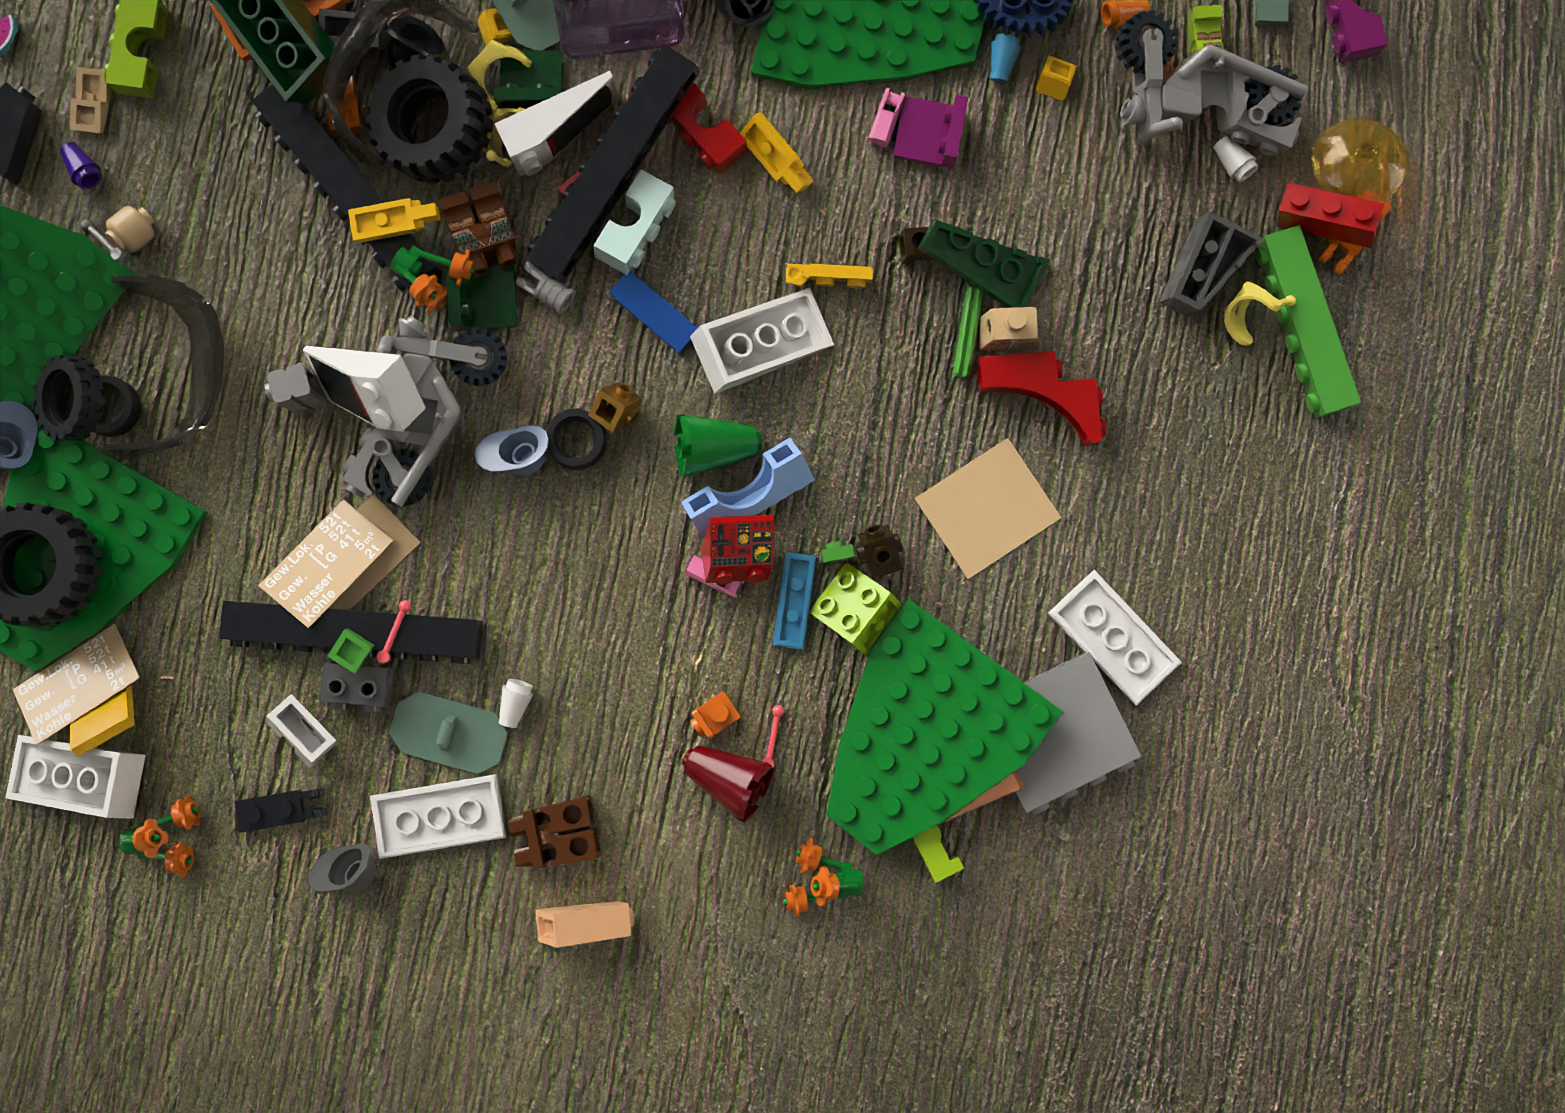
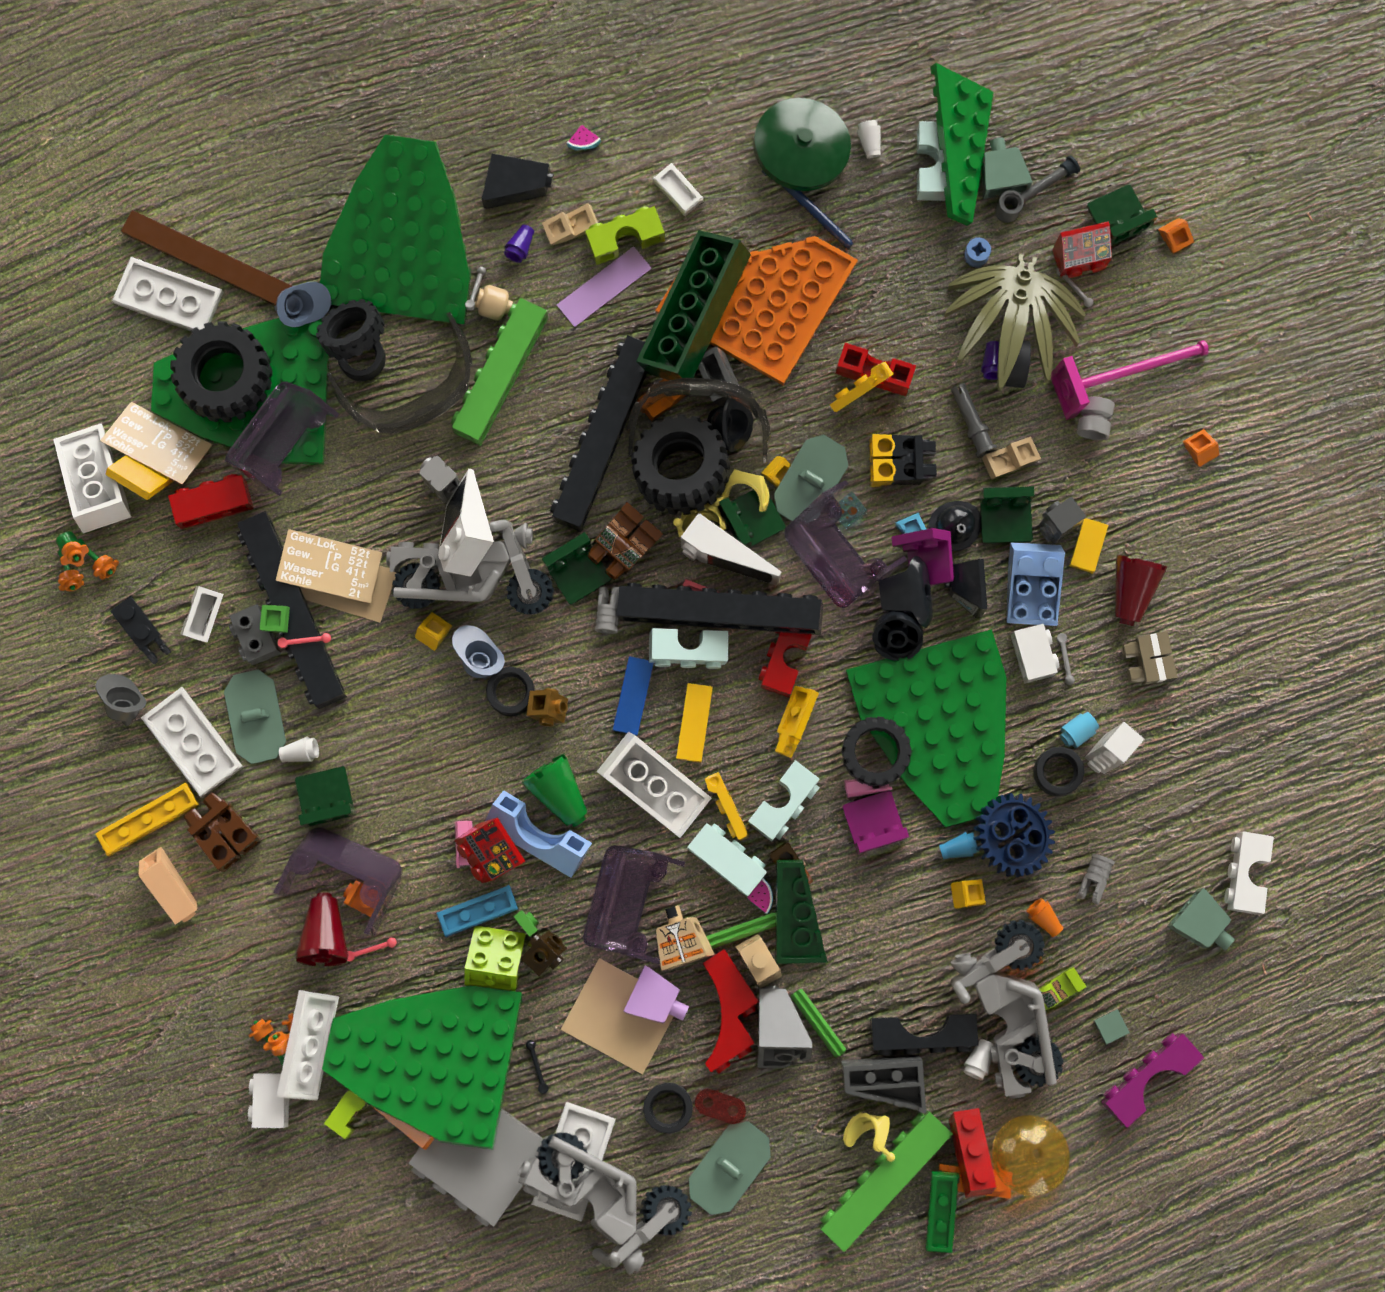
camera: 60 degrees right, 5 degrees down
(136, 539) = (275, 432): none -> windscreen
(177, 657) = (210, 501): none -> red brick
(182, 103) = (604, 286): none -> lavender sticker
(212, 262) = (499, 371): none -> bright green brick
(391, 219) = (593, 477): yellow hinge -> none
(425, 288) = (554, 529): plant -> none
(462, 489) = (432, 631): none -> yellow slope
(497, 909) = (147, 819): none -> yellow tile
(580, 701) = (324, 797): none -> dark green bracket
(633, 728) = (377, 871): none -> windscreen
(718, 262) = (694, 722): none -> yellow tile
(843, 857) = (307, 1046): none -> white tile
(847, 187) = (771, 820): none -> light aqua arch
(863, 53) = (898, 735): none -> black tyre
(864, 441) = (621, 900): none -> clear purple windscreen
(878, 929) = (267, 1107): none -> white brick
(885, 304) = (727, 859): none -> light aqua brick
(943, 291) = (762, 896): none -> dark pink tile
(945, 398) = (681, 940): none -> tan torso
(990, 460) = (655, 998): none -> lavender torso
(1019, 629) = (543, 1087): none -> black hinge
(1096, 345) = (780, 1030): none -> slope
(1107, 304) = (818, 1023): none -> bright green axle
(1125, 488) = (648, 1105): none -> black tyre
(1139, 453) = (720, 1106): none -> clear red plate
(1175, 612) = (610, 1194): none -> light grey piece
(1192, 167) = (957, 1032): none -> black arch
(1207, 478) = (729, 1168): none -> sand green shield
(1369, 282) = (941, 1212): none -> green tile

